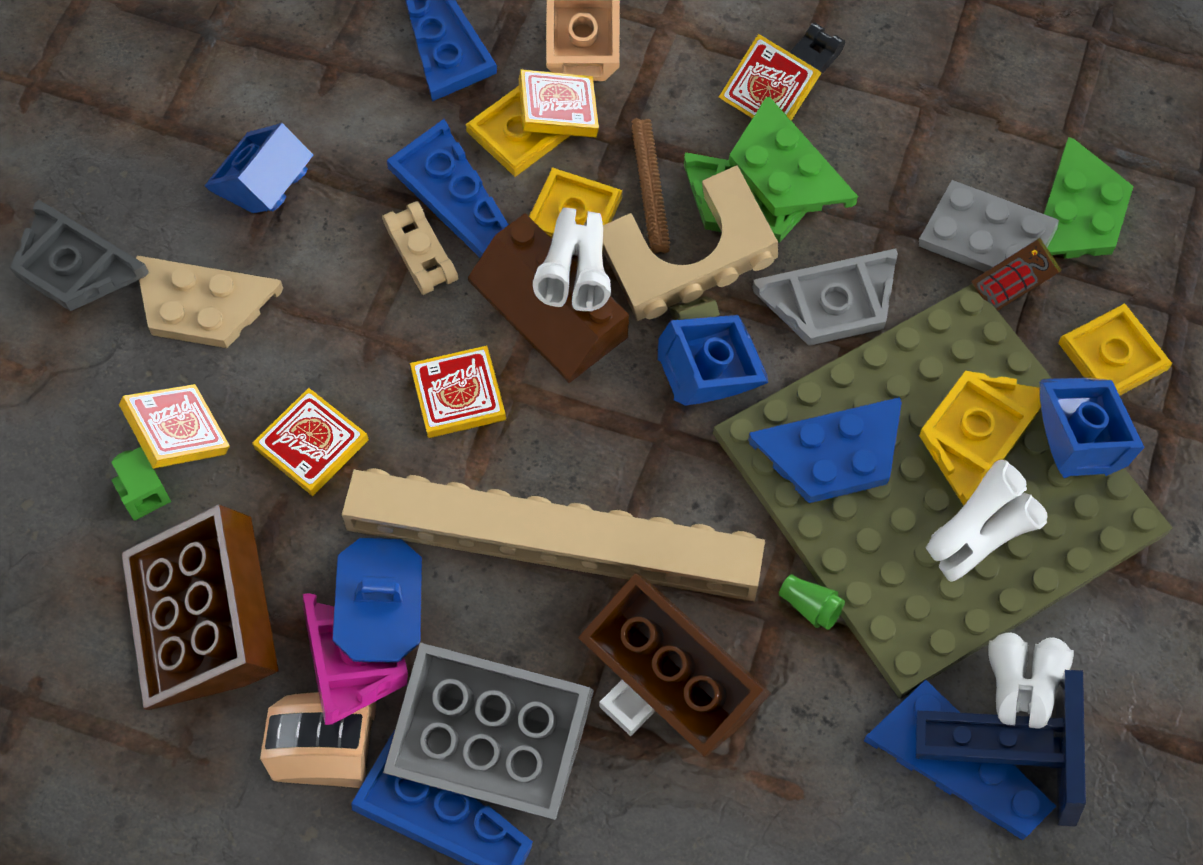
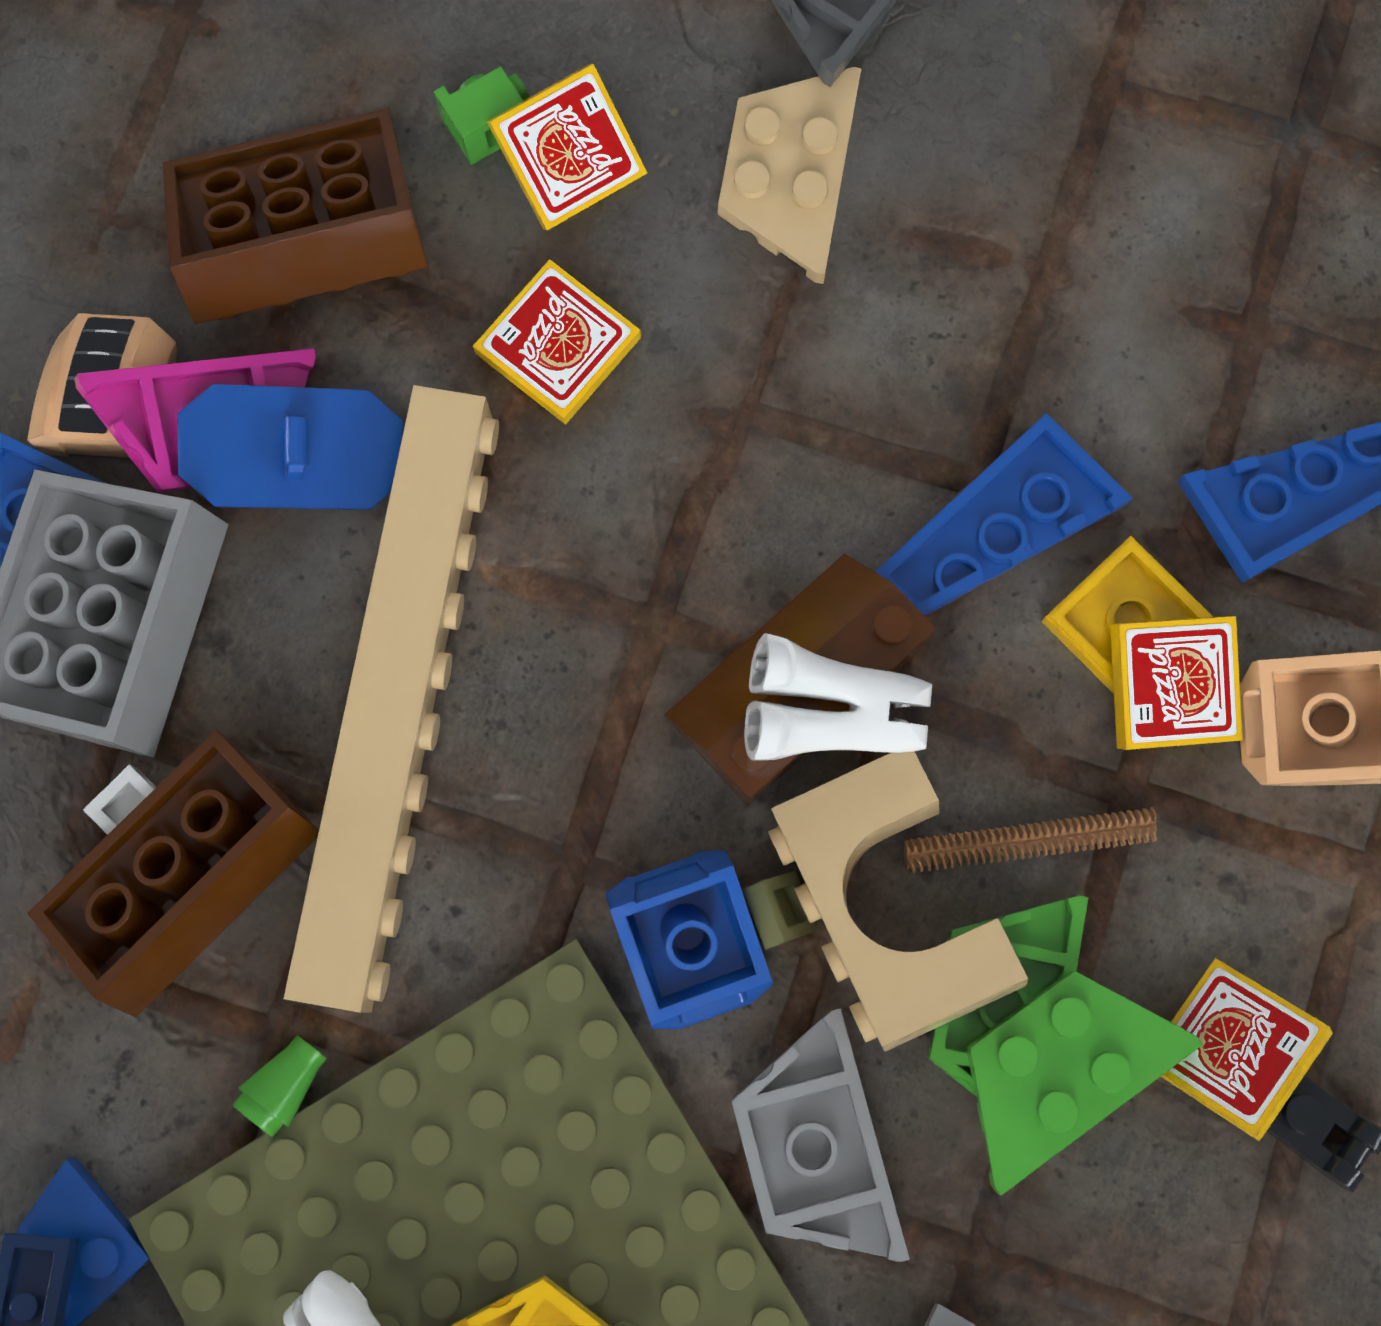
camera: 90 degrees right, 15 degrees up
(261, 169) = (1019, 226): slope -> none
(420, 248) = (893, 477): tan plate -> none
(457, 391) = (641, 547): tile -> none
(573, 192) = (979, 714): yellow tile -> none
(835, 450) = (519, 1135): blue wing -> none

